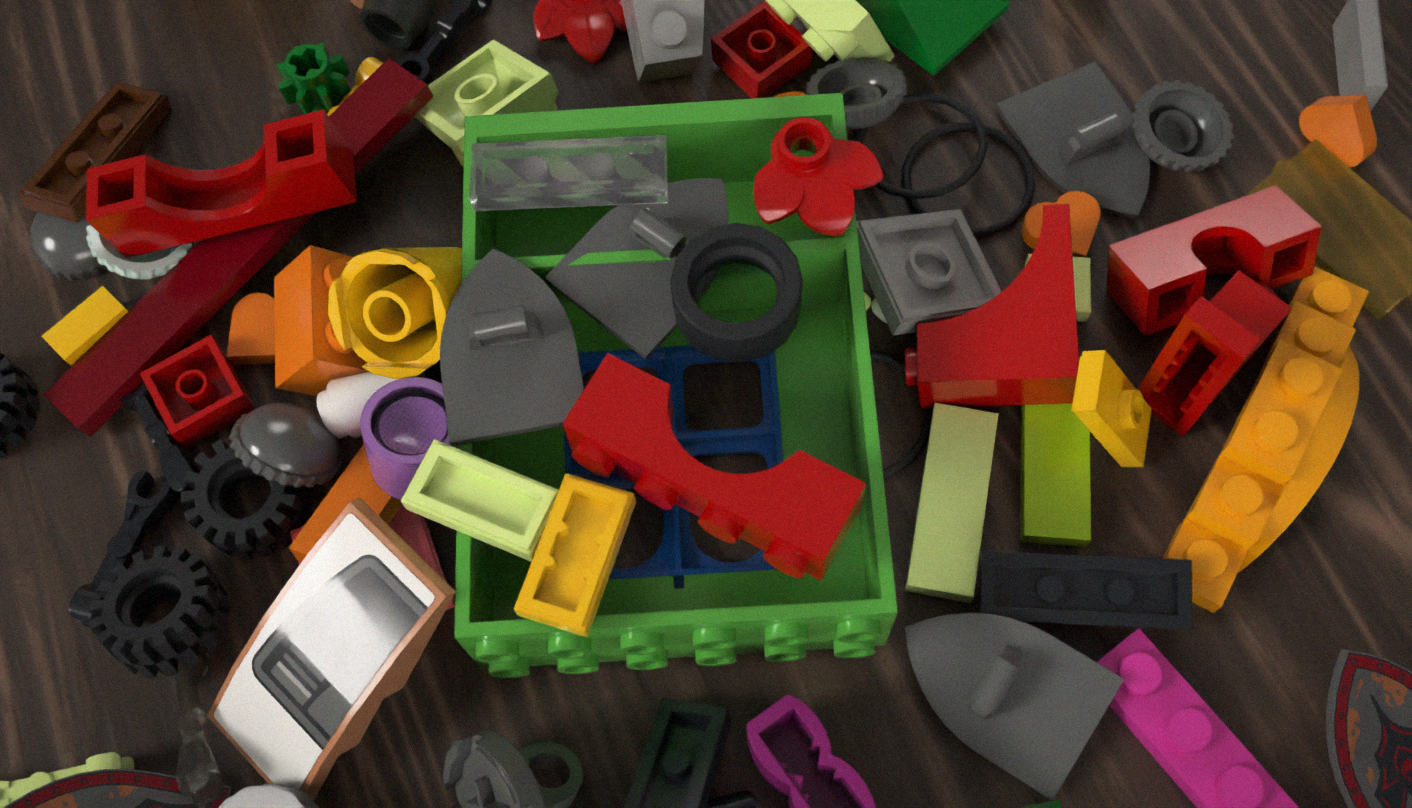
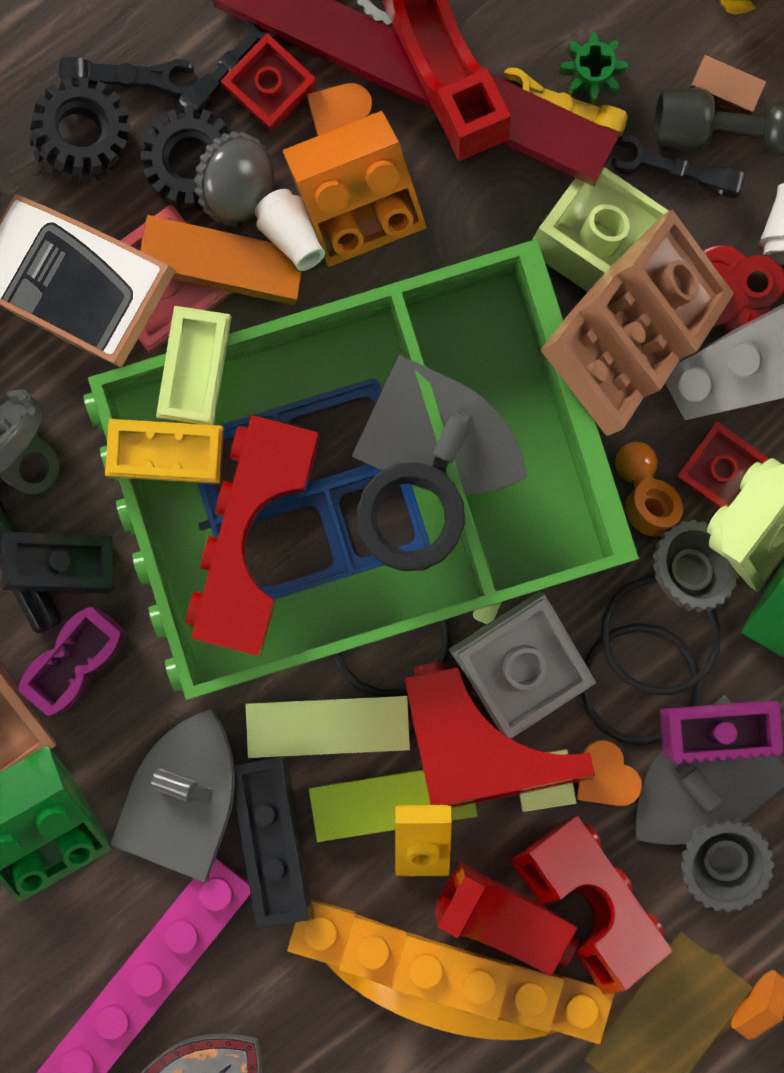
camera: 70 degrees right, 20 degrees up
(395, 306) = (363, 242): yellow cone -> none
(400, 428) = (253, 285): medium lavender piece -> none
(506, 354) = (322, 346): dark grey shield -> none
(569, 173) = (496, 347): clear tile -> none
(590, 62) = (638, 323): none -> nougat slope
(814, 185) = (531, 560): red plate -> none
(1041, 92) = (721, 732): none -> magenta brick

